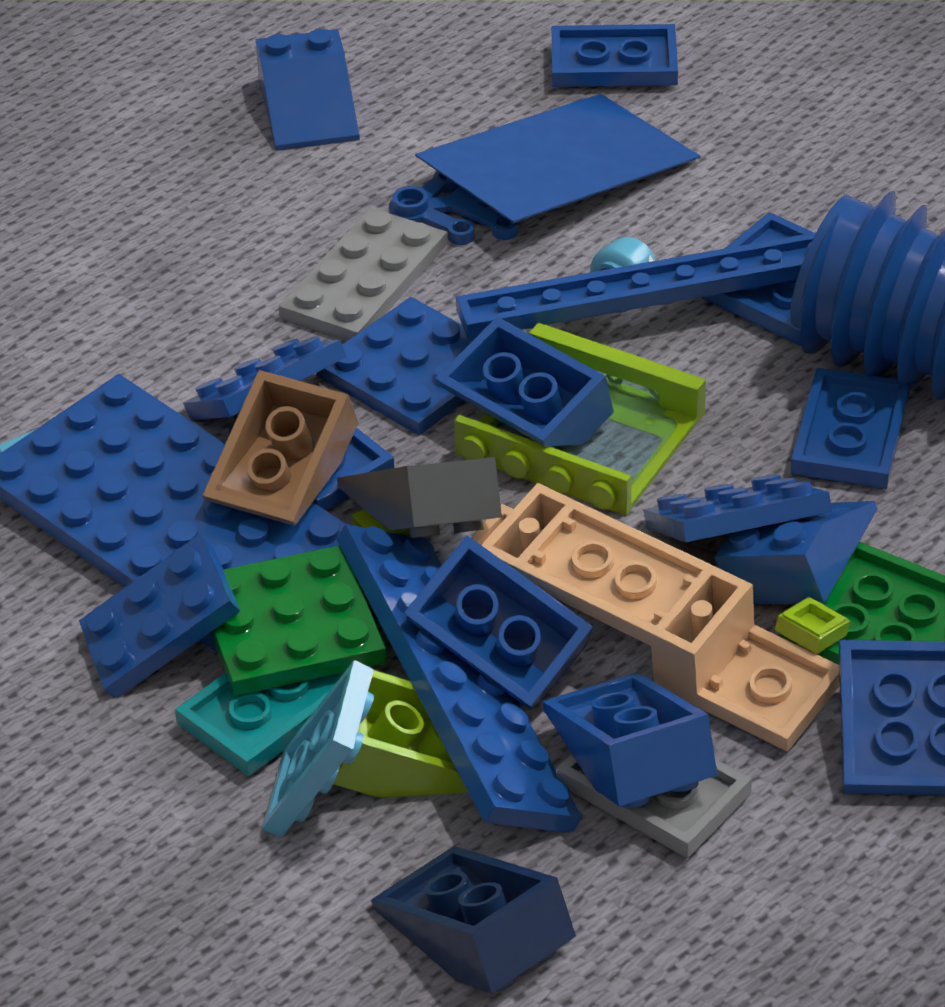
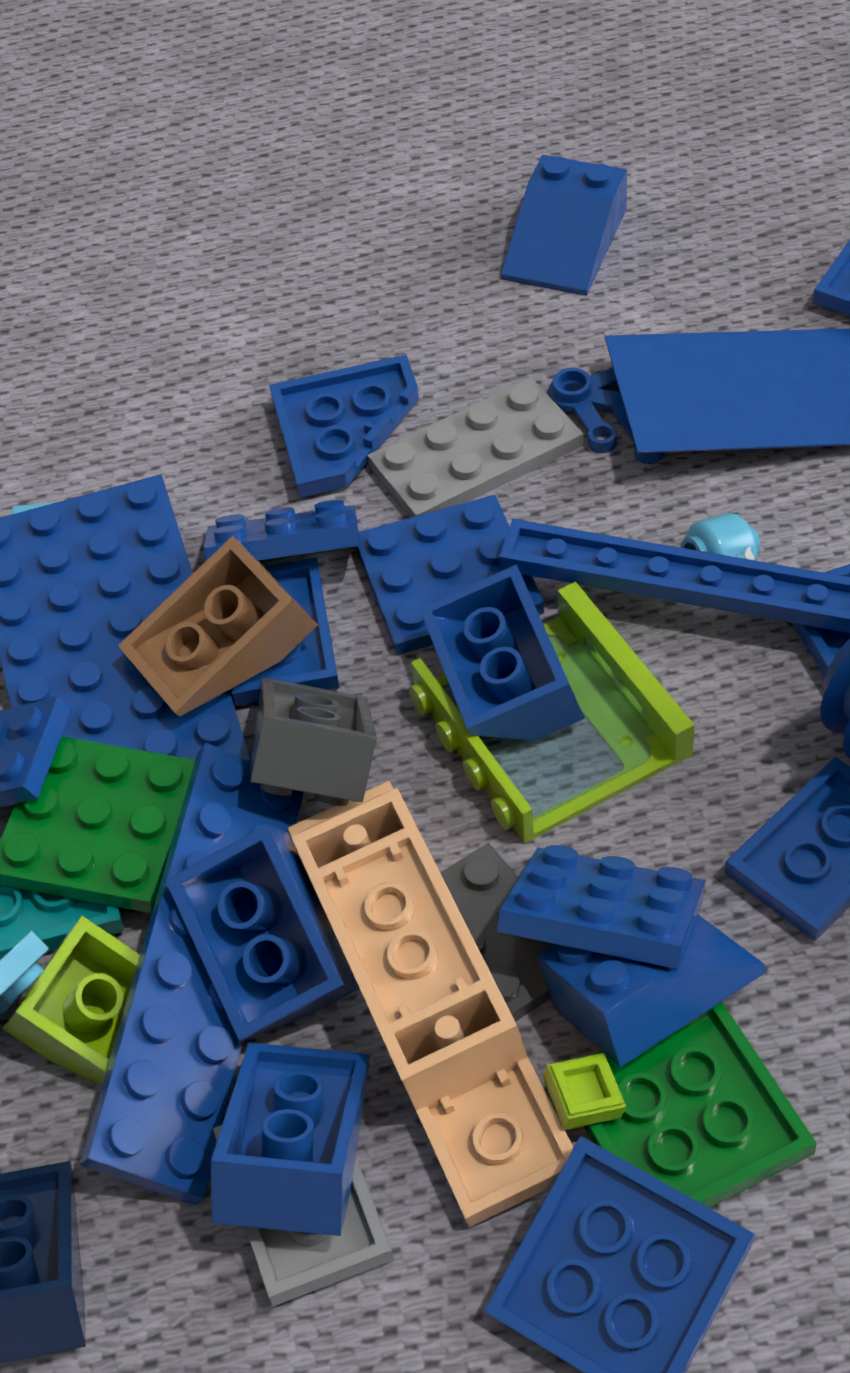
camera: 35 degrees right, 10 degrees up
(230, 290) = (340, 419): none -> blue plate

